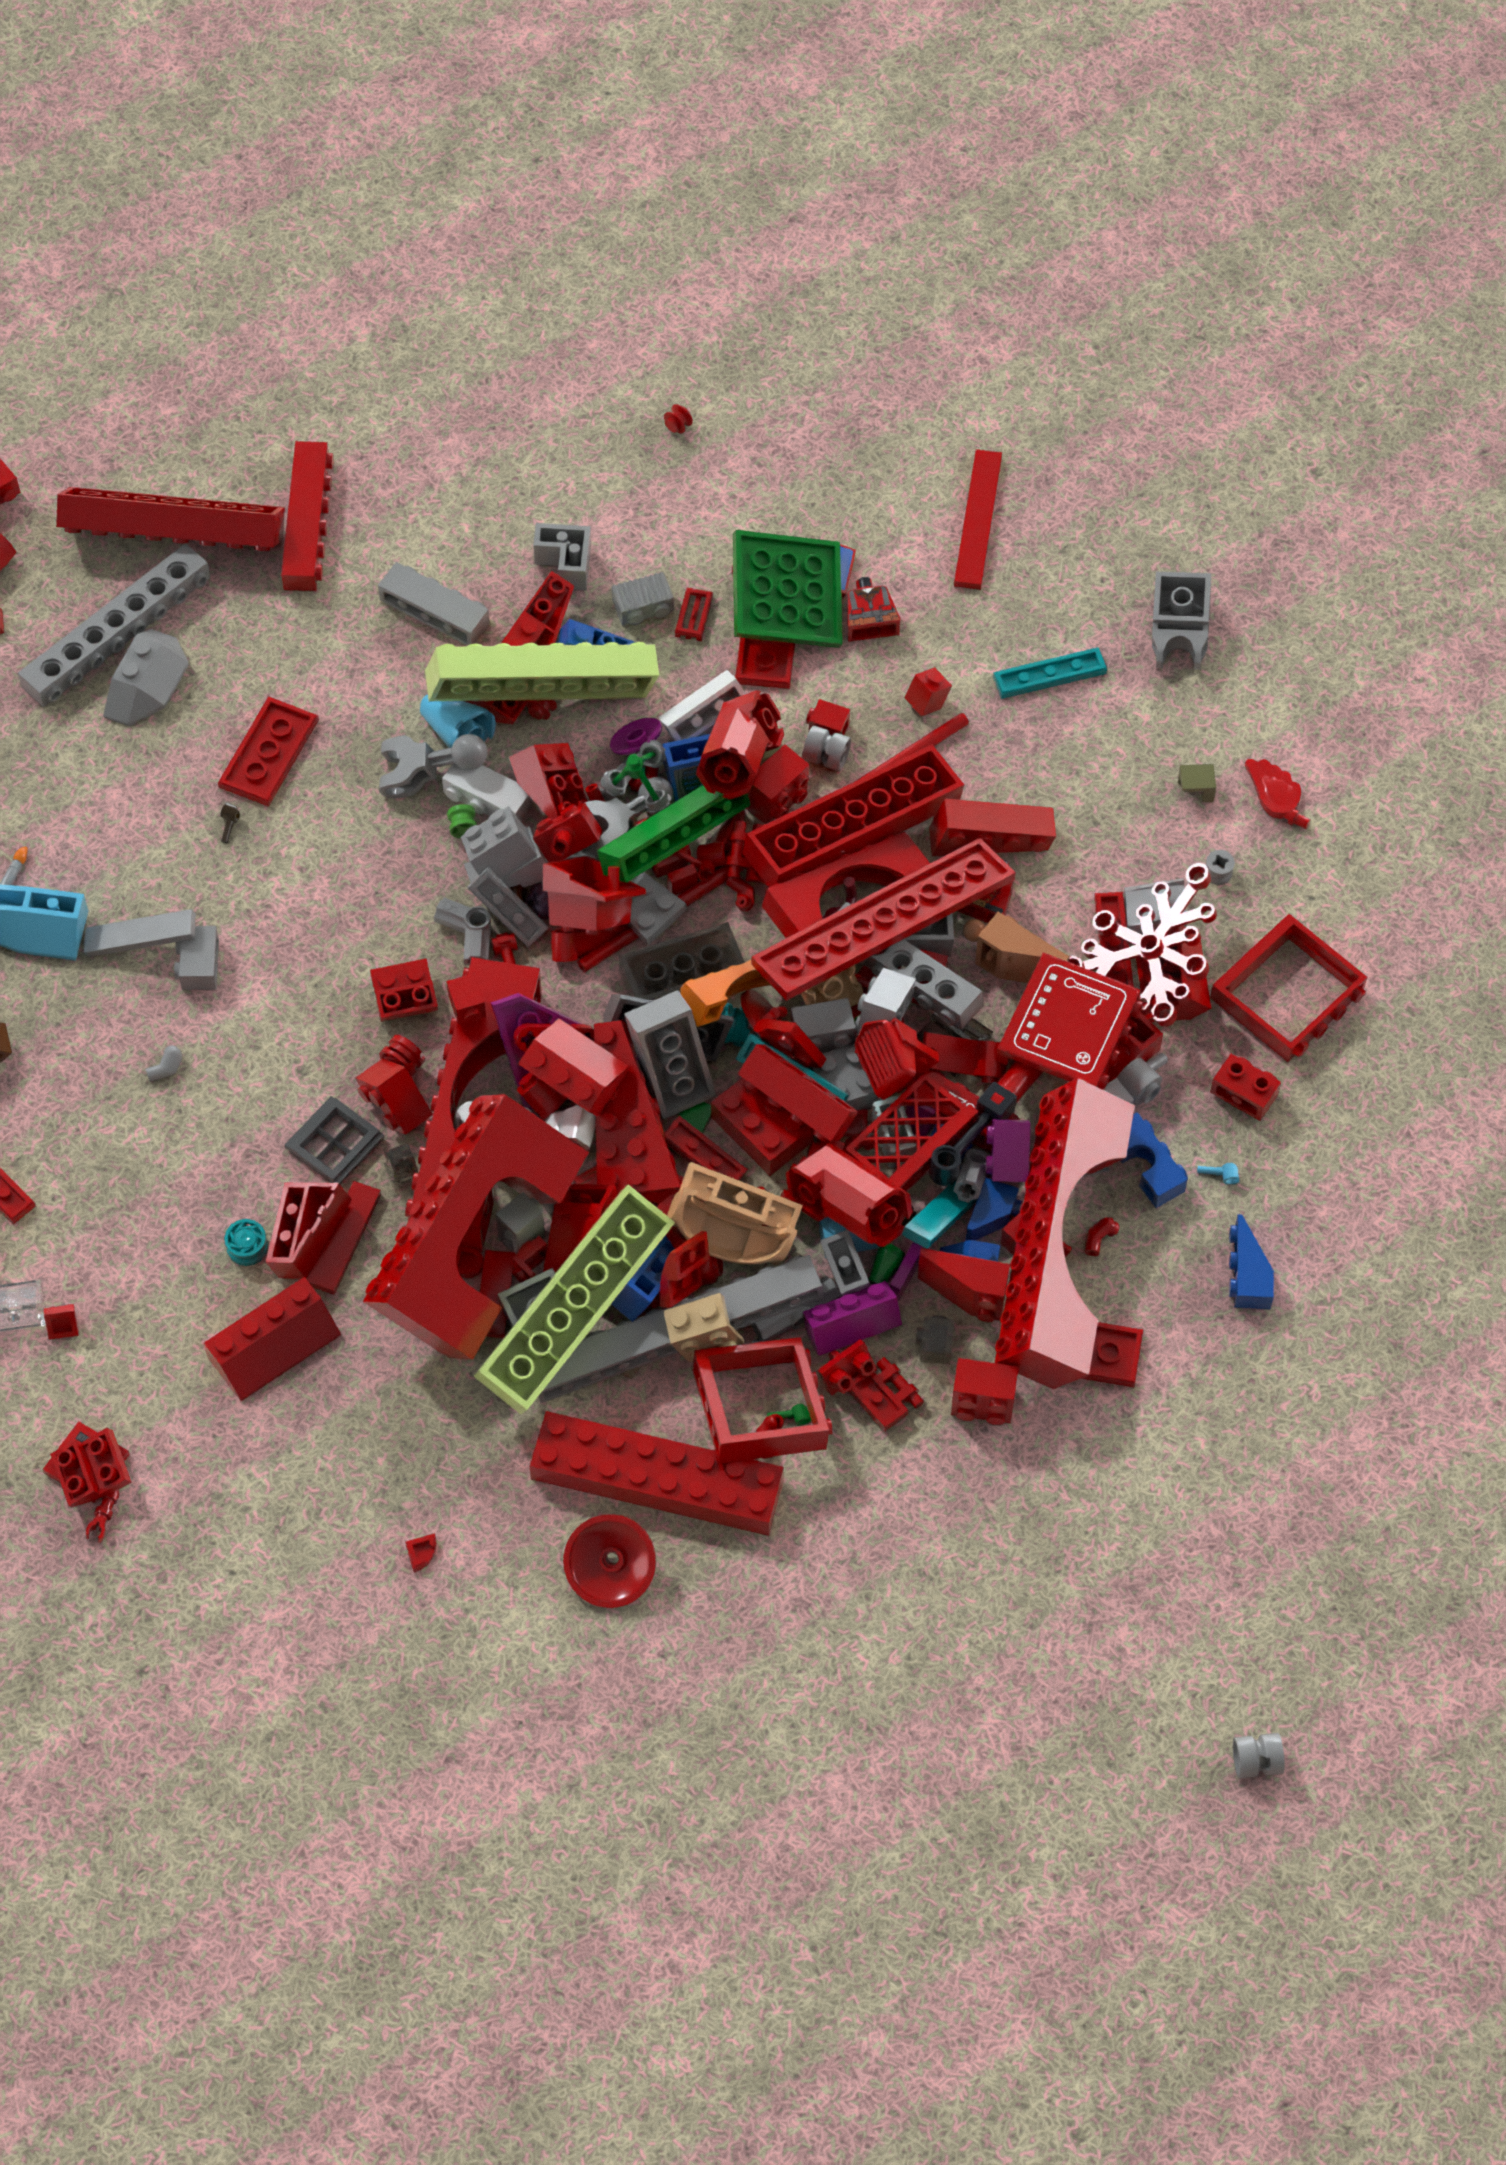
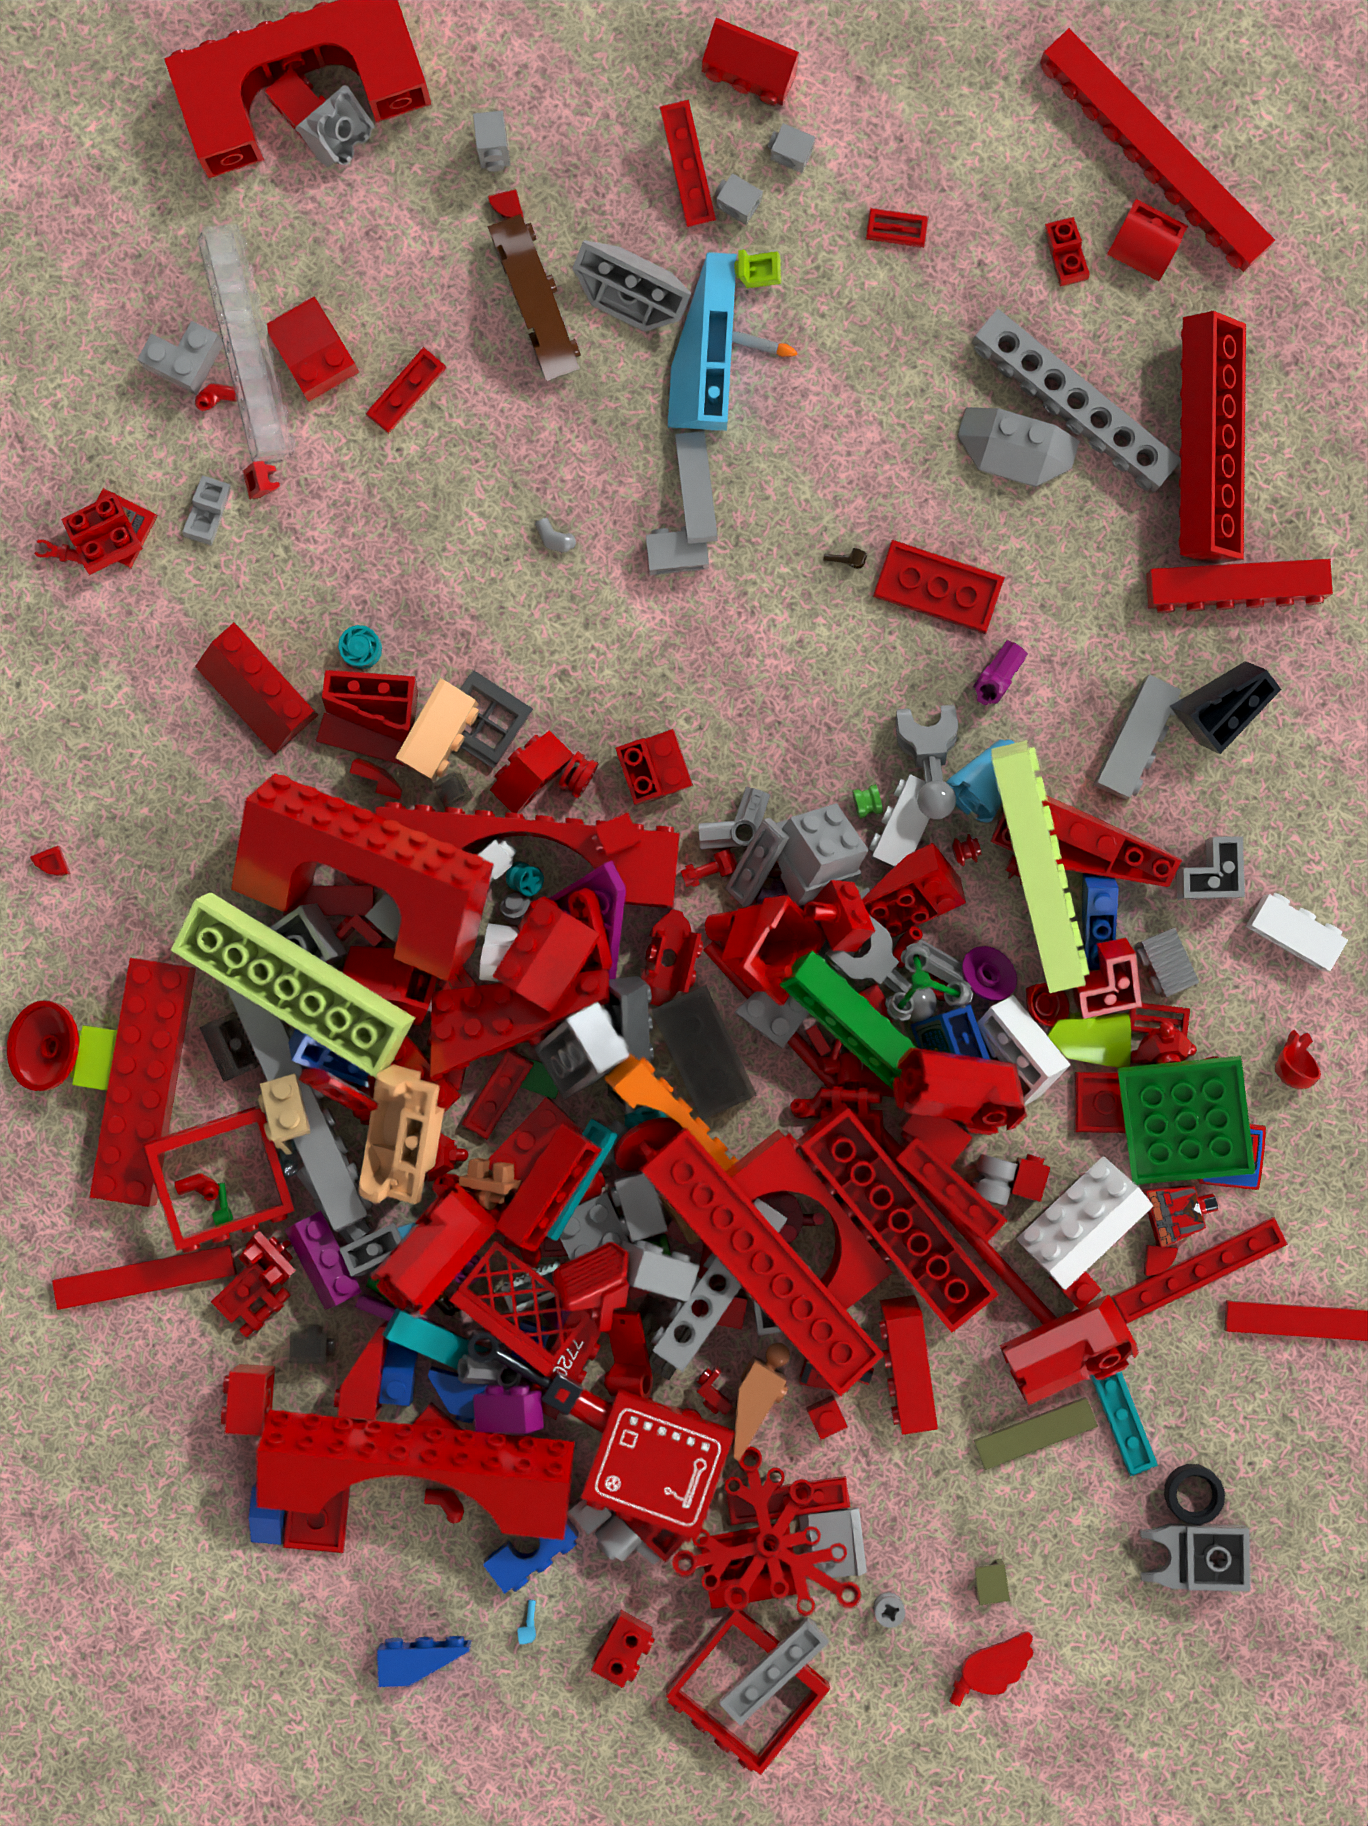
camera: 85 degrees right, 25 degrees up
(81, 1375) = (207, 510): none -> light grey slope
(331, 1162) = (438, 731): none -> light nougat slope
(361, 709) = (997, 677): none -> magenta piece
(384, 1228) = (386, 783): none -> red slope
(416, 530) = (1226, 705): none -> black wedge
(517, 742) = (966, 850): none -> red wheel
(586, 987) = (672, 933): none -> red piece
(627, 500) = (1297, 932): none -> white brick
(630, 1386) = (229, 1046): none -> clear smoke brick
(639, 1508) = (94, 1057): none -> lime brick
(656, 628) = (1114, 985): none -> red brick
(669, 693) = (1046, 1006): none -> red hat
(705, 656) = (1094, 1039): none -> lime panel
(718, 607) = (1163, 1046): none -> red rock
(747, 512) = (1296, 1064): none -> red piece
(786, 1134) = (490, 1186): none -> nougat hips
(791, 1041) = (606, 1174): red plate -> none
(830, 767) = (950, 1188): none -> red fence
(855, 1495) = (144, 1277): none -> red tile
(872, 675) = (1084, 1222): none -> white brick
(912, 632) = (1158, 1259): none -> red tile
(925, 603) = (1199, 1270): none -> red tile
(988, 699) = (1070, 1350): none -> red brick
(1006, 996) = (714, 1400): none -> red bracket
(1036, 900) = (826, 1417): none -> red brick
(1063, 740) = (1035, 1433): none -> olive tile
(1101, 1394) = (264, 1523): none -> blue slope
(1125, 638) = (1215, 1505): none -> black tyre
(1267, 951) = (774, 1671): none -> light grey piece

